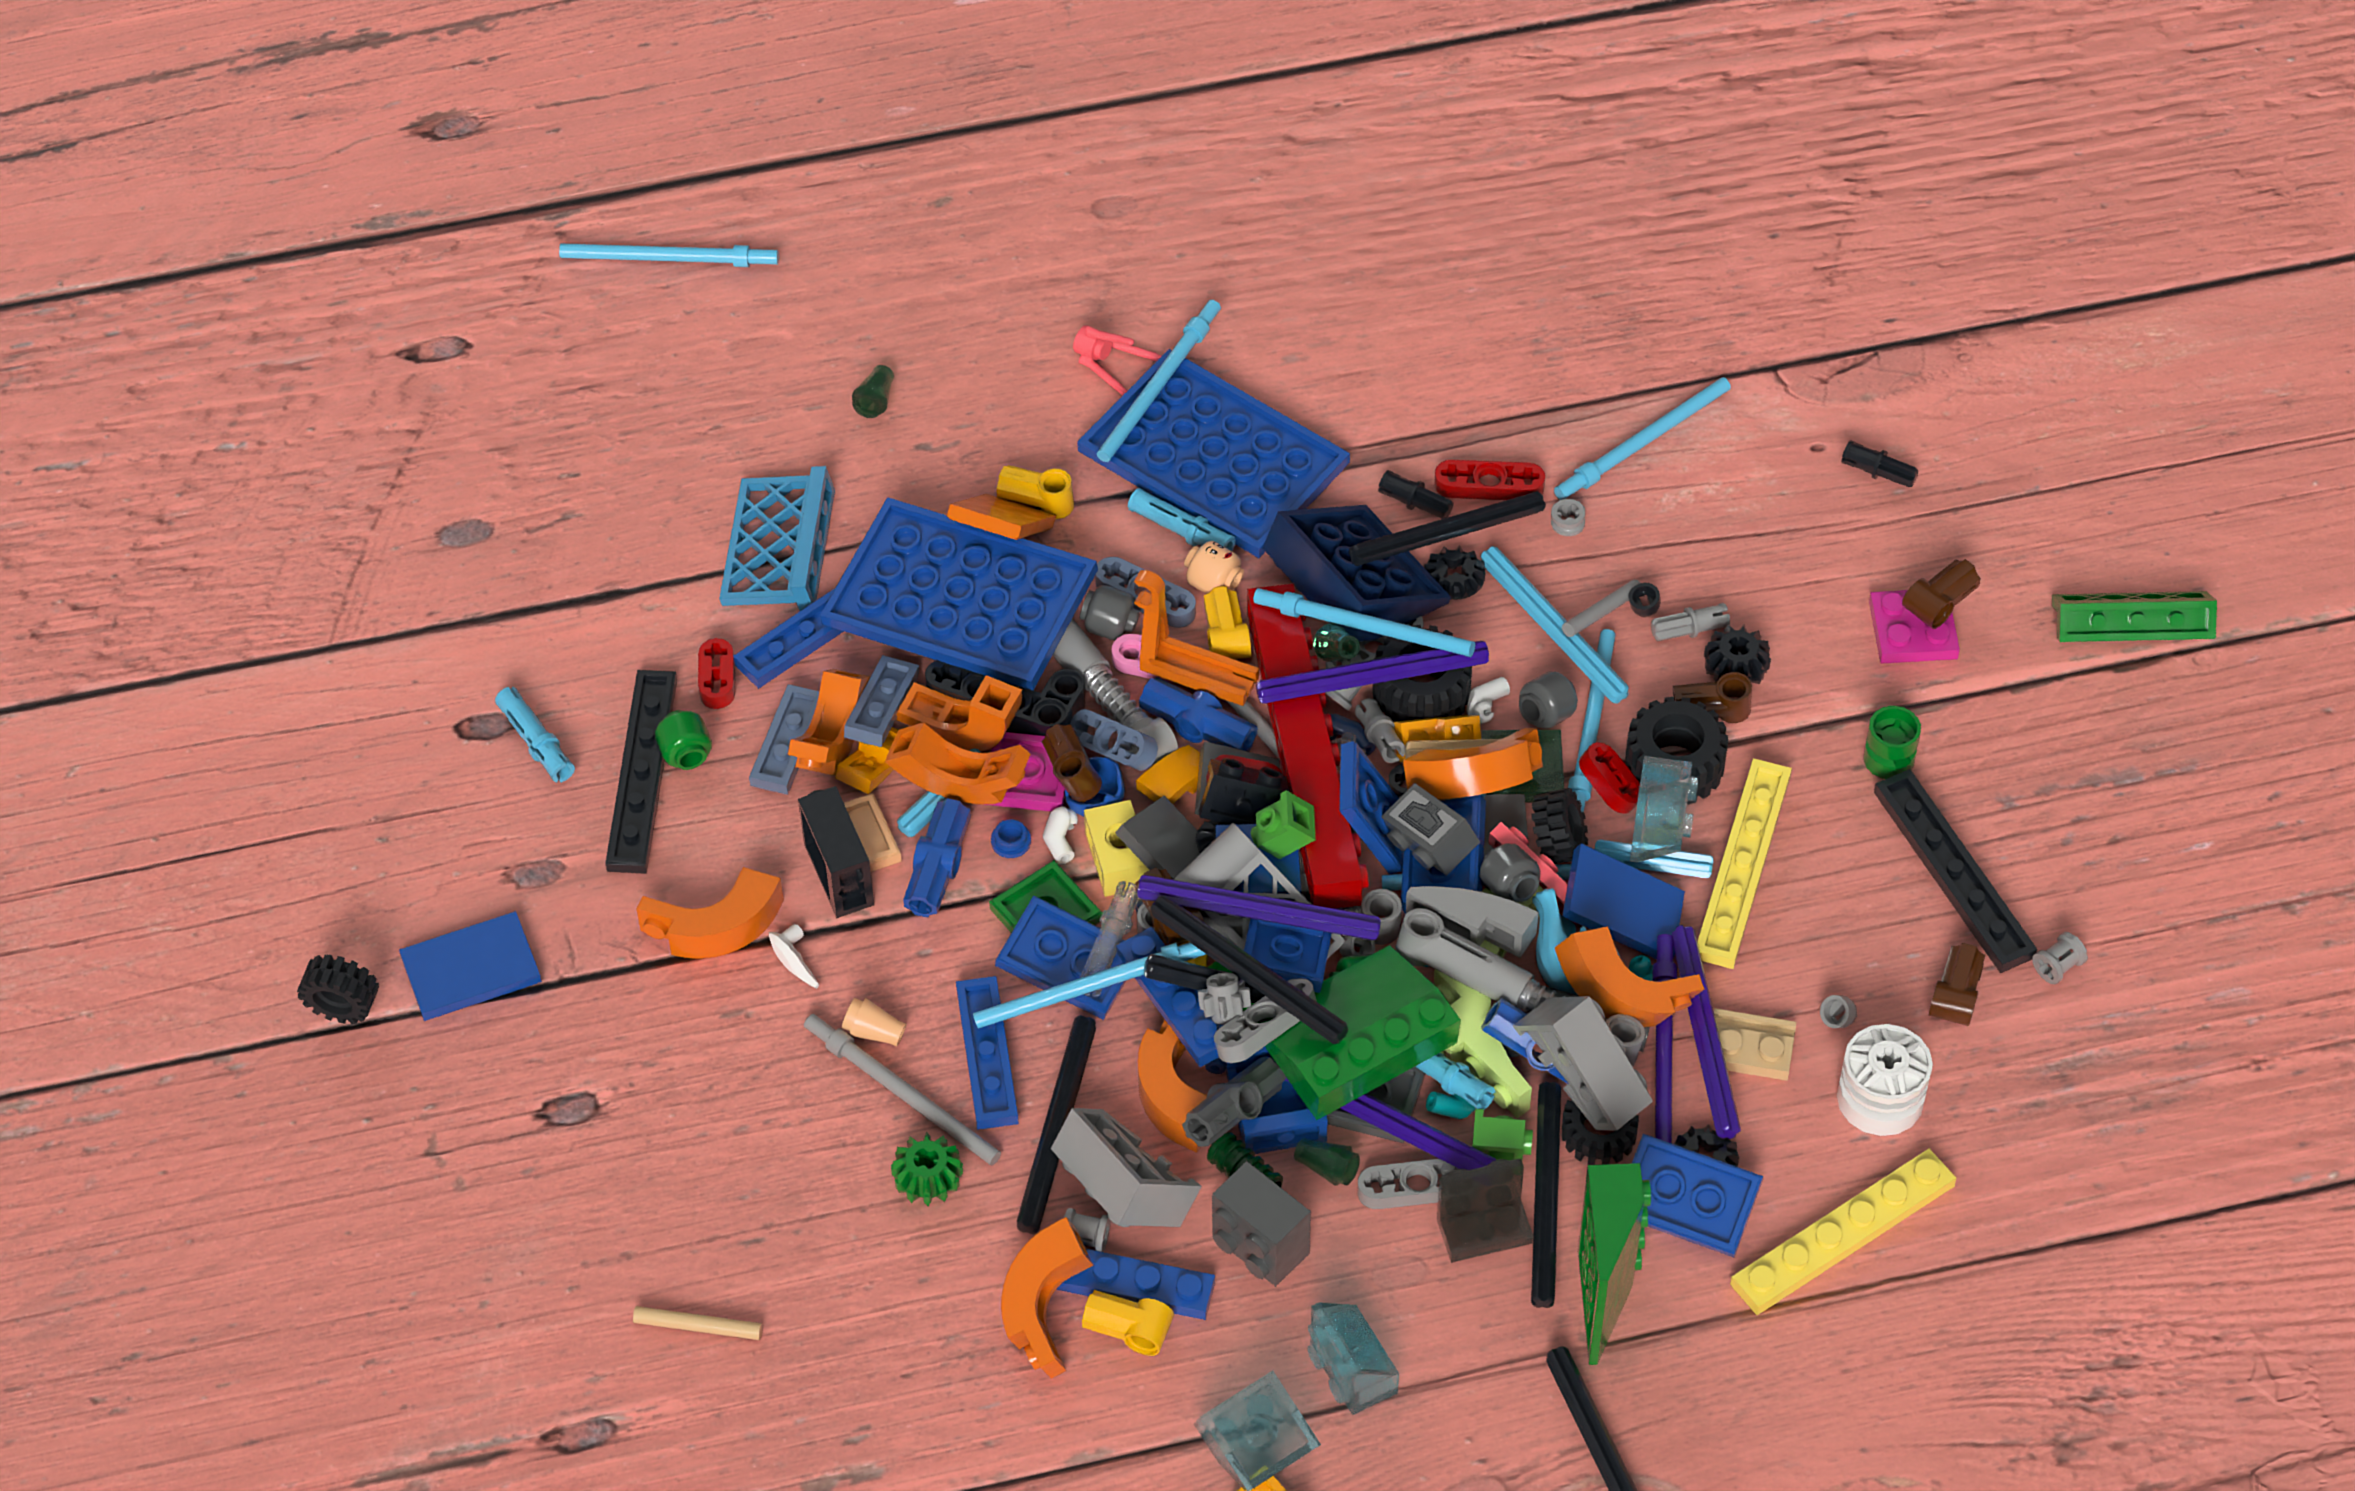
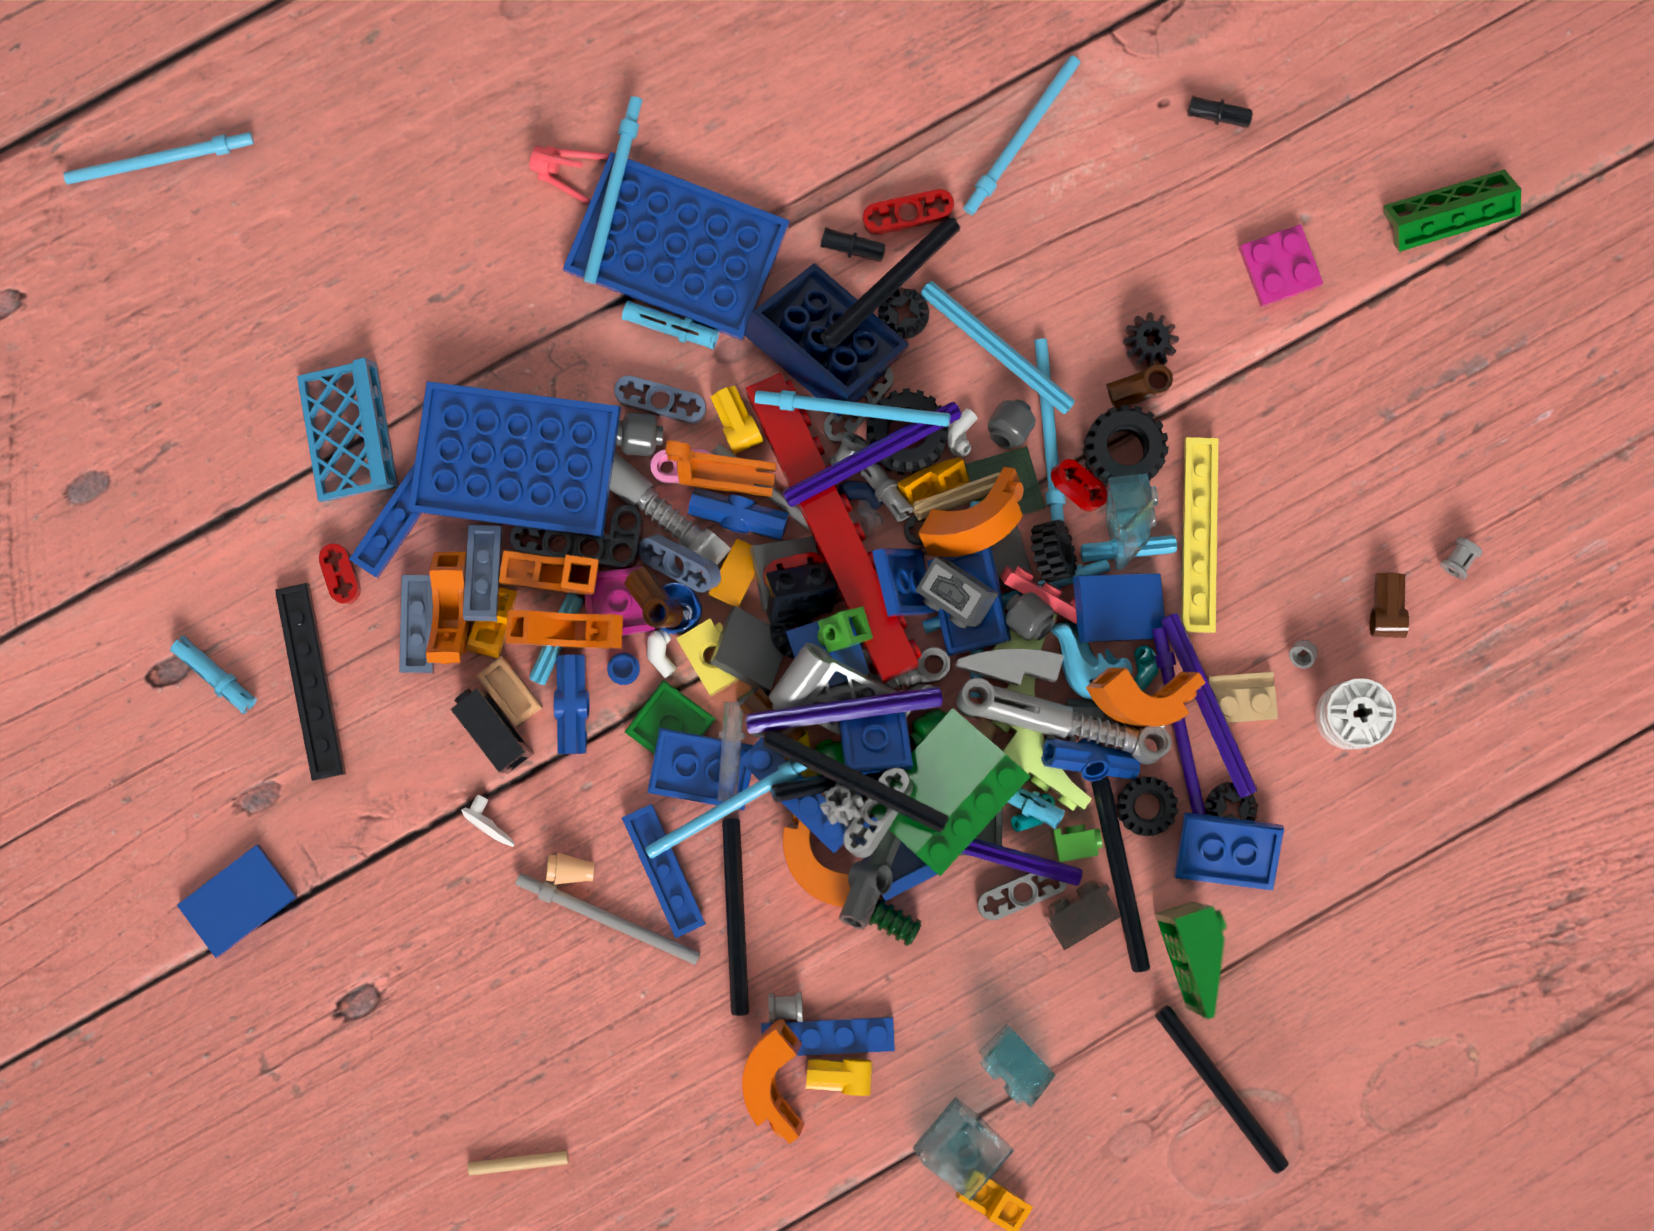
camera: 15 degrees left, 30 degrees up
(338, 989) = (142, 964): black tyre -> none
(683, 739) = (335, 651): green head -> none
(719, 927) = (433, 806): orange arch -> none
(873, 393) = (378, 259): clear green cone -> none
(927, 1169) = (651, 1000): green gear -> none
(1001, 516) = (525, 371): orange tile -> none
(1047, 490) = (540, 324): yellow piece -> none
(1121, 1174) = (798, 958): light grey wedge -> none
(1213, 567) = (710, 368): light nougat head -> none
(1260, 1224) = (919, 978): dark grey brick -> none
(1329, 1160) = (950, 894): clear green cone -> none
(1335, 643) = (833, 429): clear green cone -> none
(1569, 526) = (985, 240): light grey bush -> none
(1589, 1058) = (1132, 779): light grey wedge -> none
(1598, 610) = (1032, 323): light grey bar -> none
(1652, 595) = (1058, 307): black hinge -> none
(1690, 622) = (1104, 313): light grey axle -> none
(1842, 1231) = (1348, 844): light yellow plate -> none
(1891, 741) = (1292, 393): green wheel -> none
(1935, 599) = (1299, 246): reddish brown piece -> none
(1955, 871) = (1364, 497): black plate -> none

